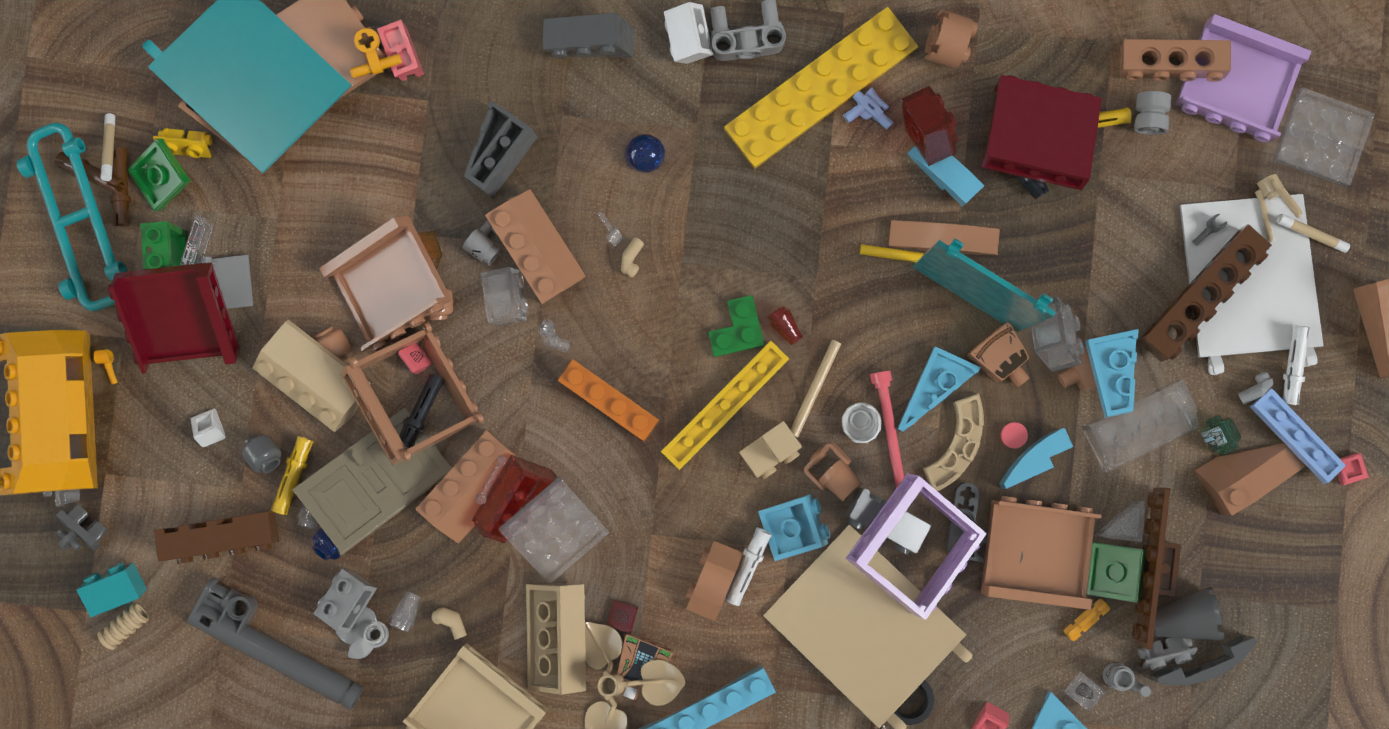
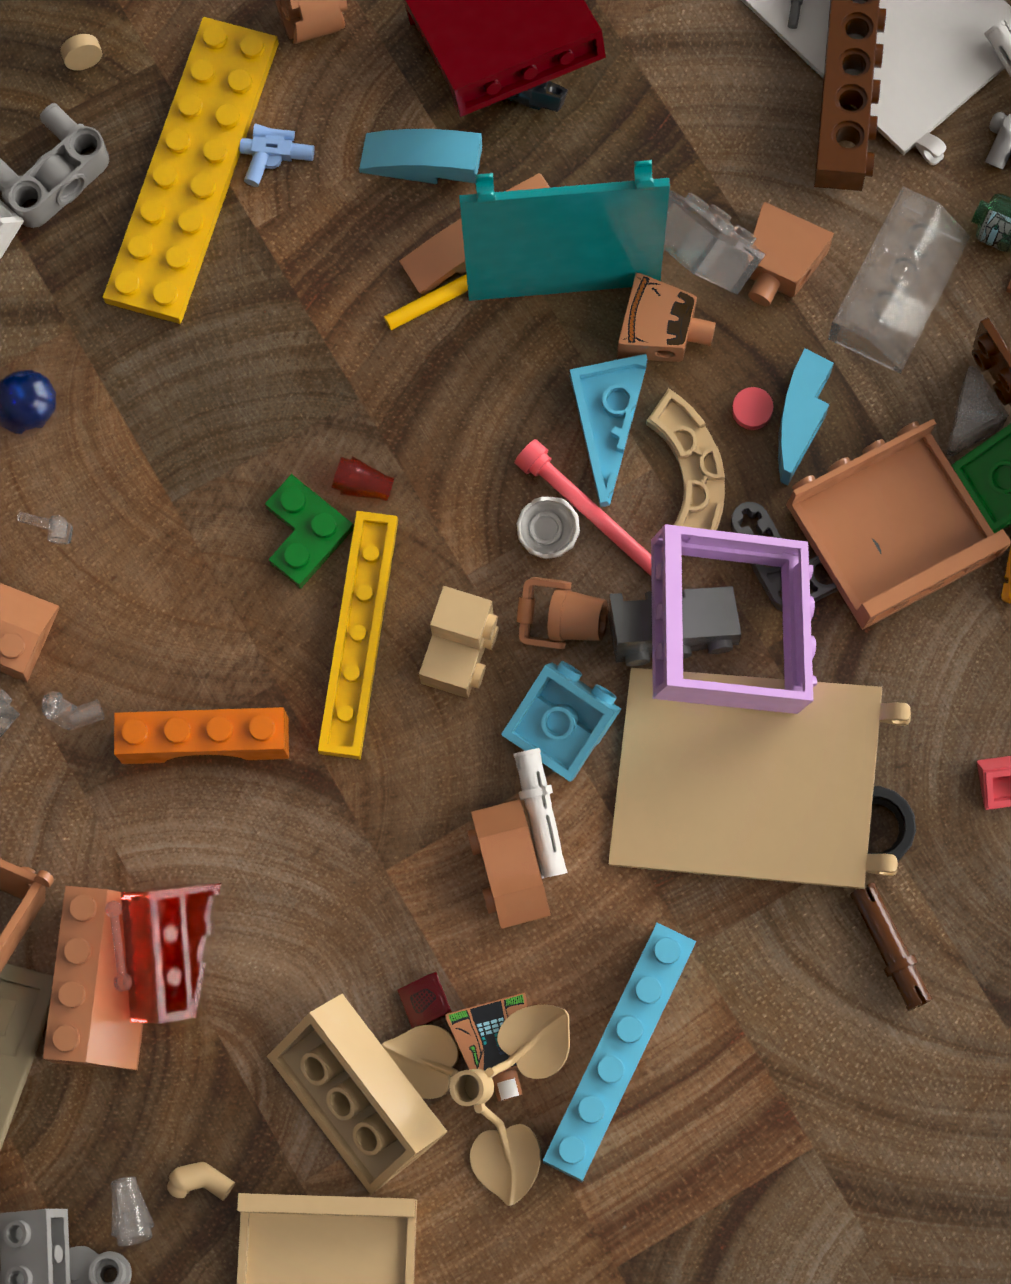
camera: 30 degrees left, 10 degrees down
(554, 530) = (250, 950): clear plate -> none
(628, 257) = (96, 541): tan arm -> none
(815, 388) = (457, 524): tan bar -> none
(929, 125) = (358, 110): clear red brick -> none
(1113, 369) = (808, 233): medium azure wing -> none

